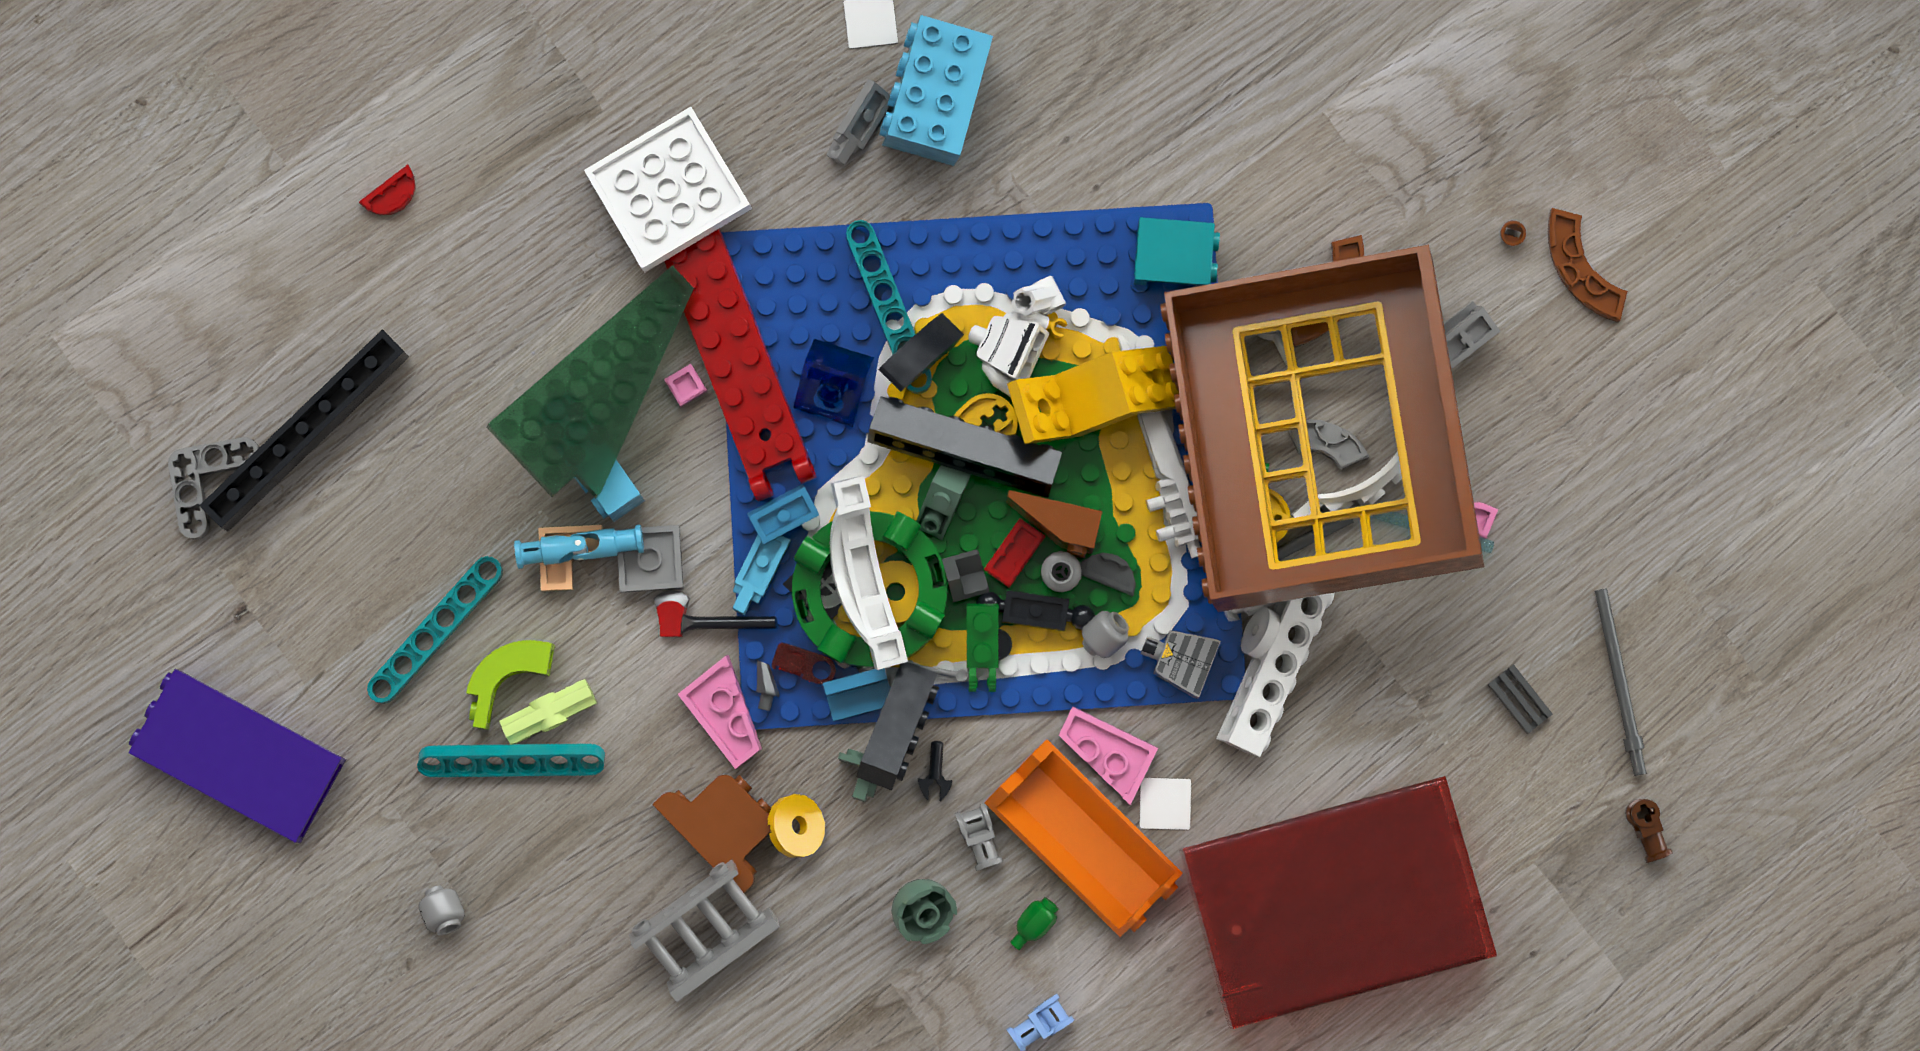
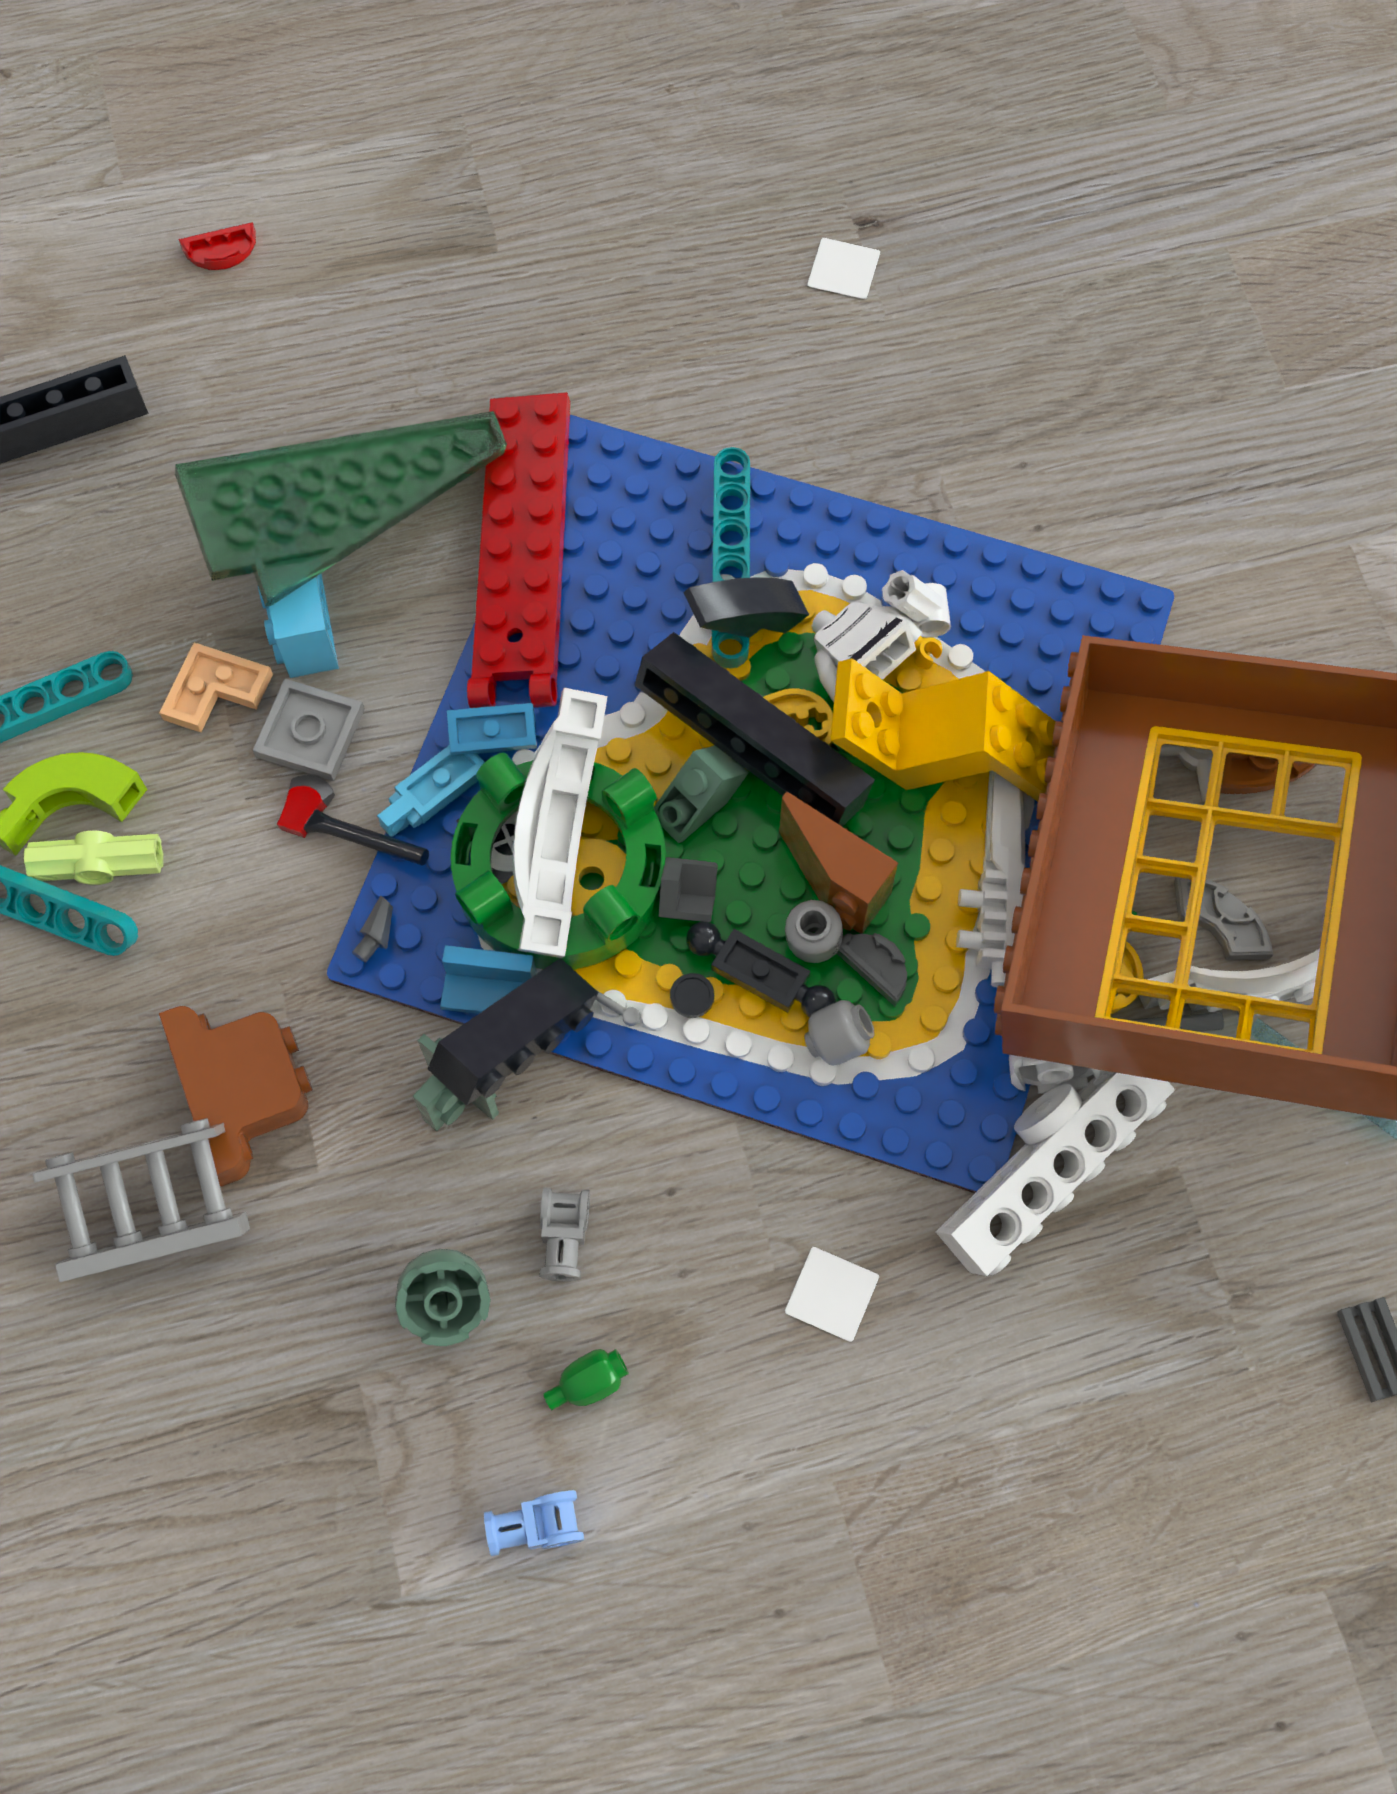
camera: 25 degrees right, 15 degrees down
(560, 549) = (223, 674): medium azure piece -> none
(667, 189) = (529, 342): white plate -> none
(685, 385) = (449, 559): bright pink tile -> none
(722, 712) = (307, 942): bright pink wing -> none
(800, 661) = (431, 916): clear red piece -> none
(810, 821) = (352, 1113): yellow tile -> none
(833, 382) = (624, 609): clear blue slope -> none
(859, 122) = (786, 355): light grey hinge -> none
(935, 90) = (889, 342): medium azure brick -> none
(935, 772) = (542, 1130): black bar -> none
(982, 643) = (673, 982): green hinge -> none
(1014, 553) = (763, 890): red plate -> none
(1084, 839) = (703, 1293): orange panel -> none
(1109, 751) = (785, 1191): bright pink wing -> none
(1175, 252) = (1109, 606): teal panel -> none
(1182, 660) = (930, 1106): torso -> none
(1337, 902) = (1027, 1525): clear red piece -> none

